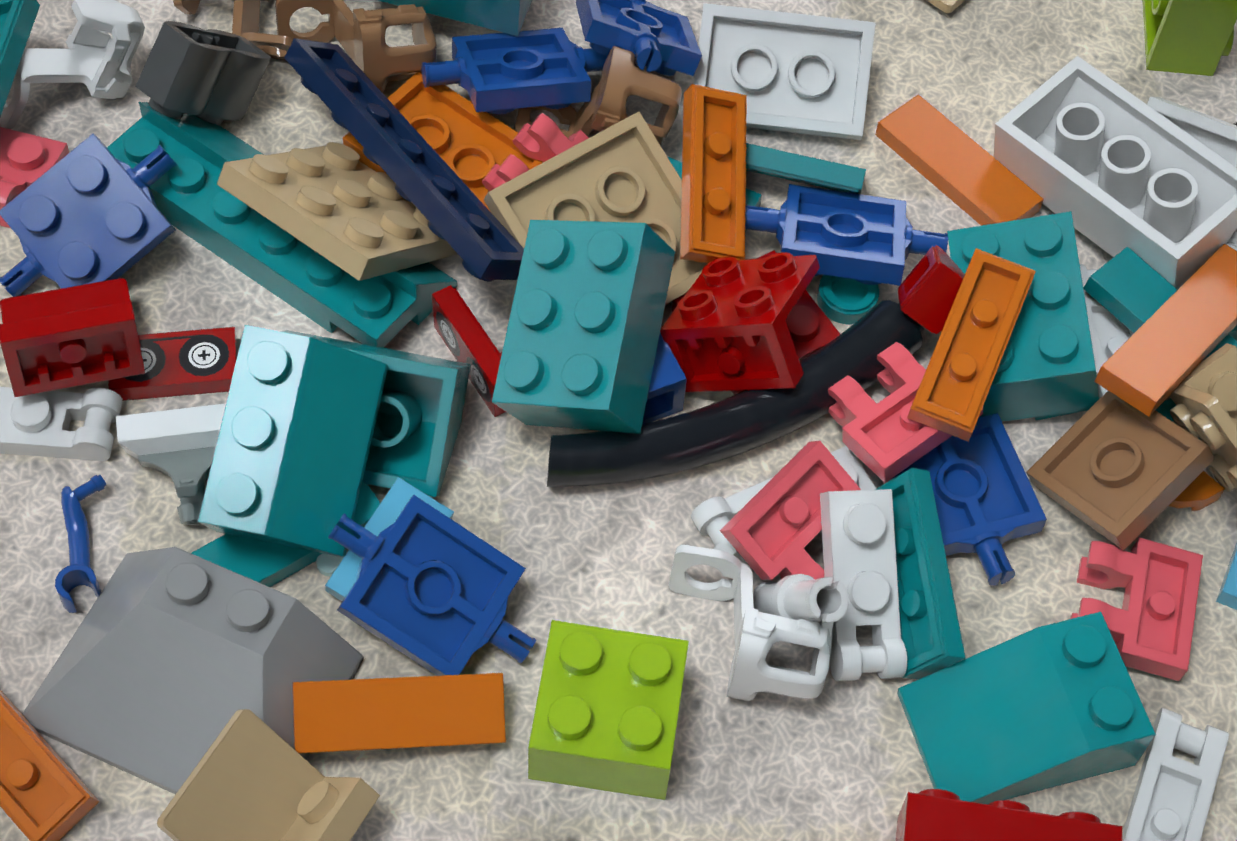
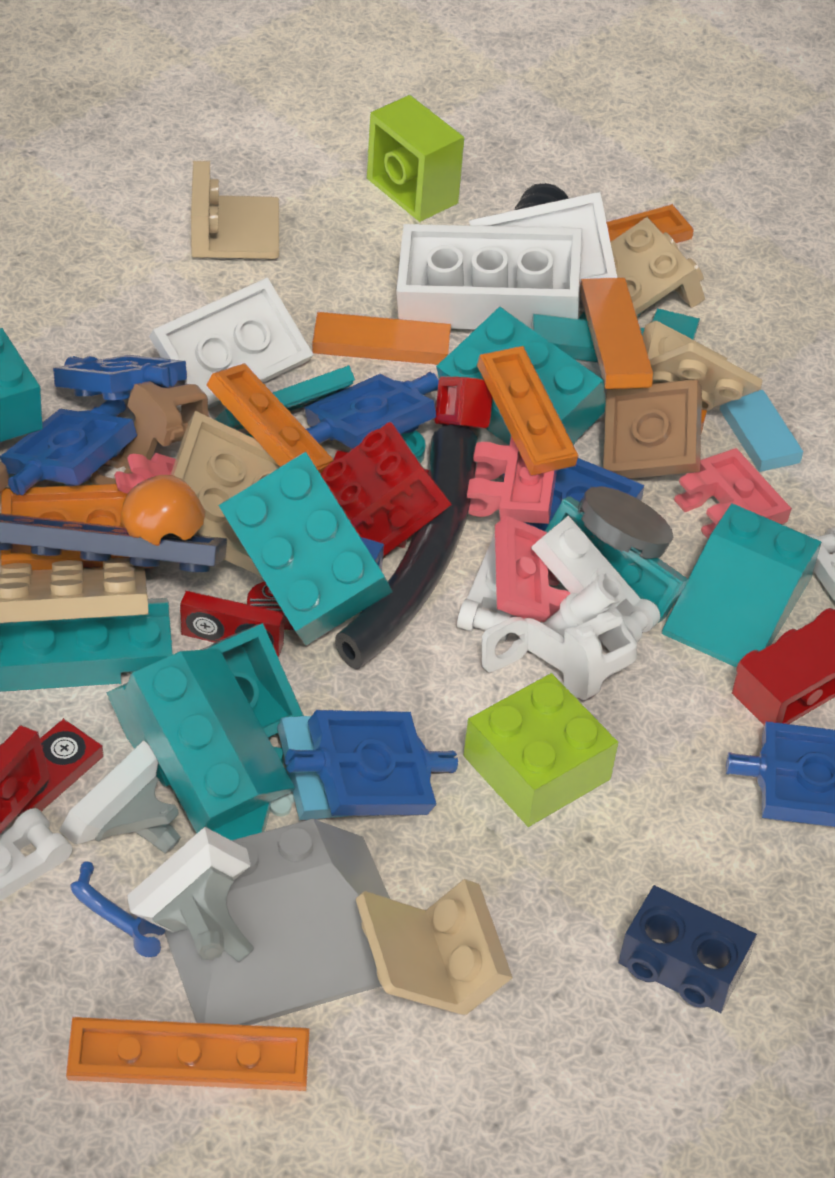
camera: 45 degrees left, 10 degrees down
(99, 577) = (192, 894): none -> piece
(398, 712) = (428, 841): orange tile -> none
(481, 187) = (162, 507): none -> orange hair
(952, 543) = (625, 522): none -> dark grey tile

